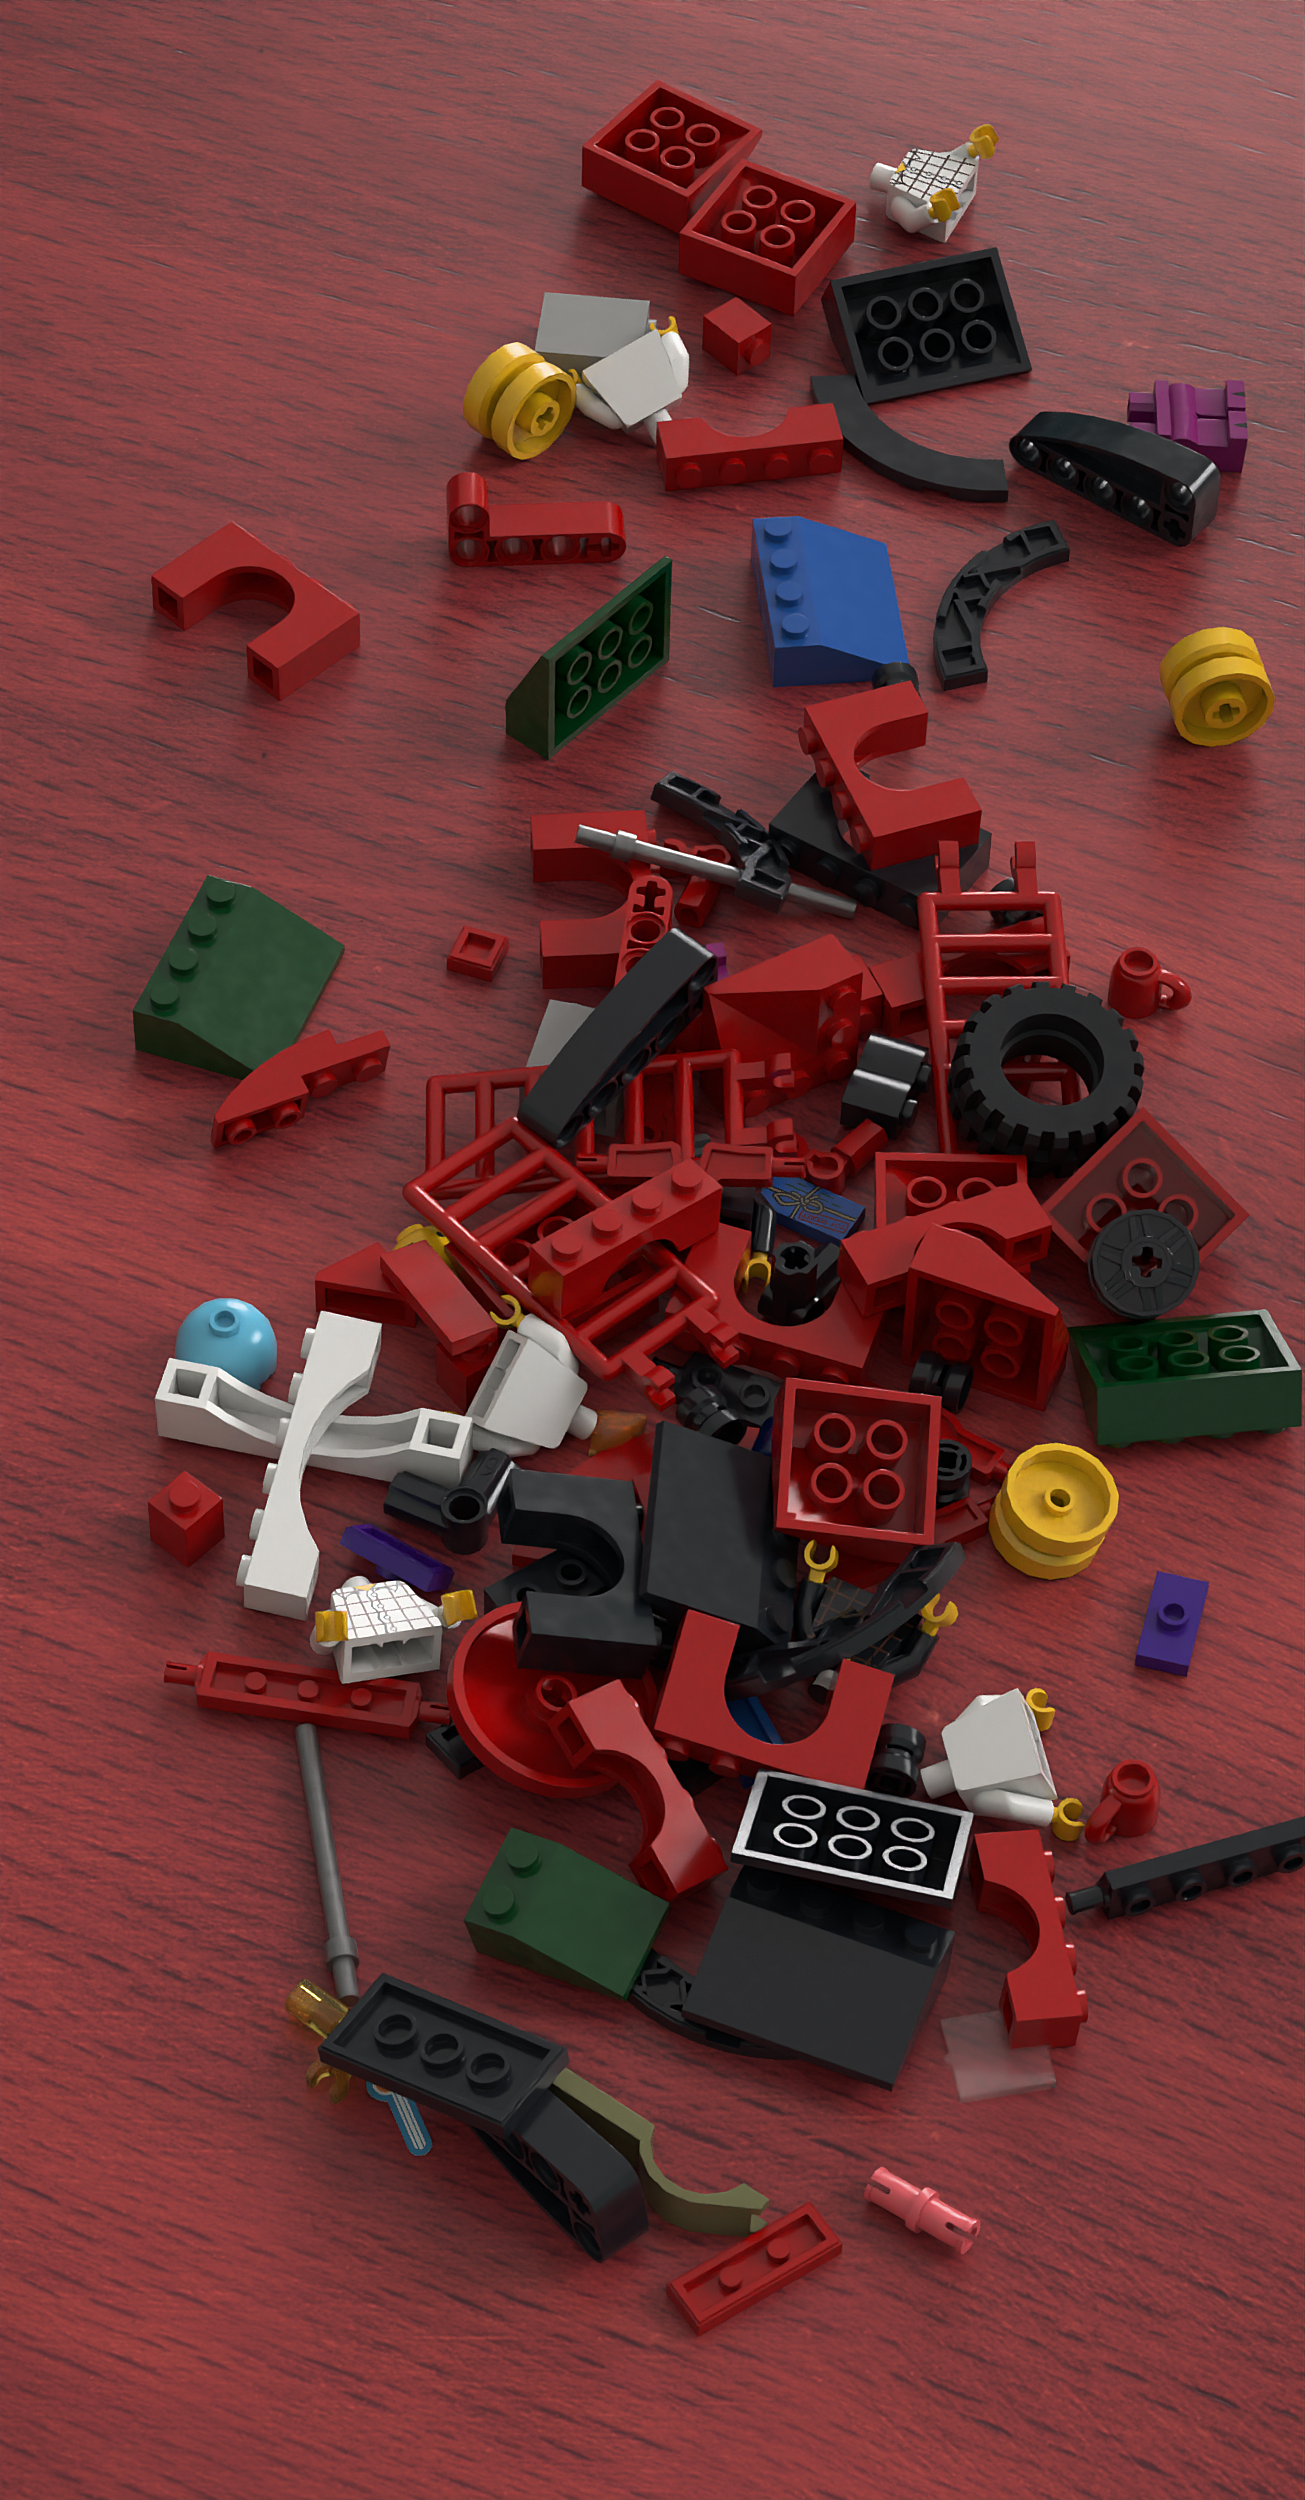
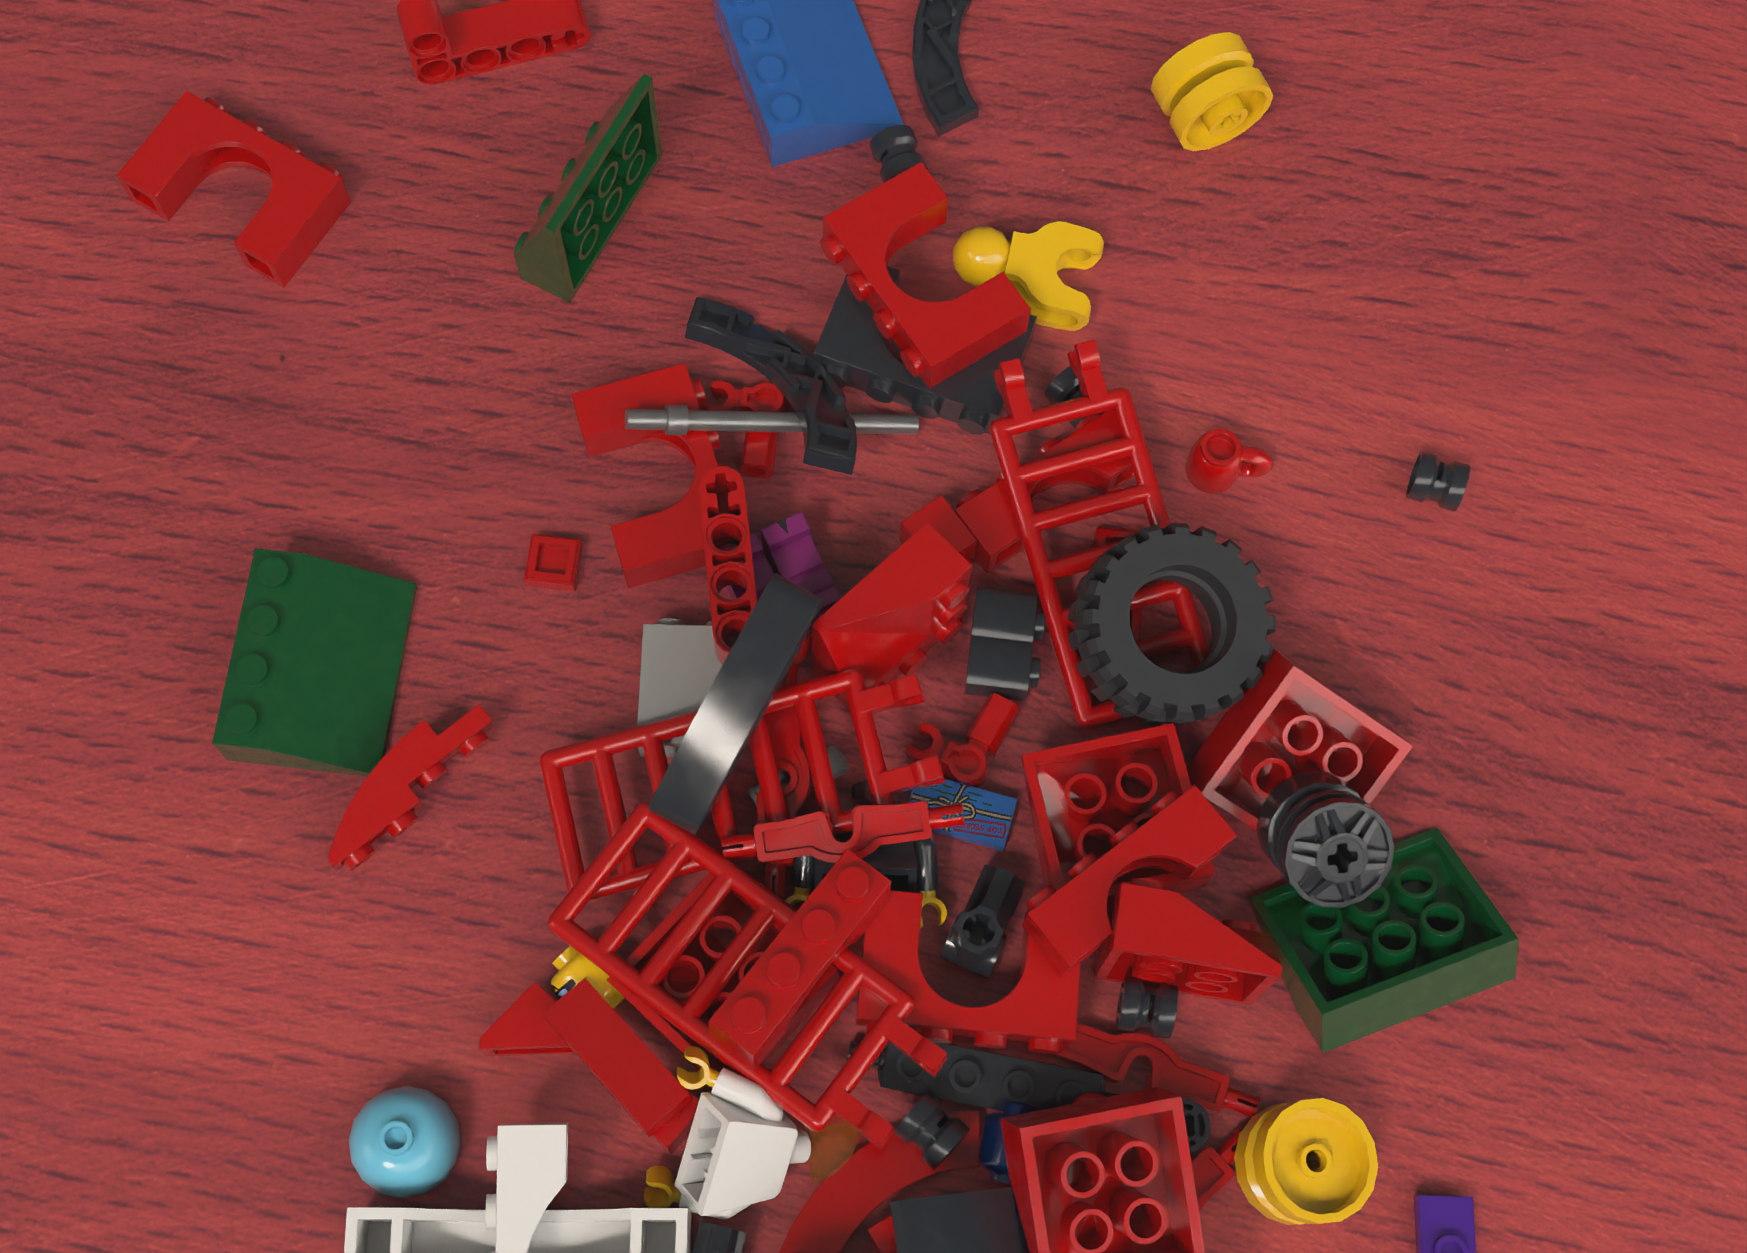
camera: 15 degrees left, 20 degrees up
(1011, 799) = (1032, 267): none -> yellow piece

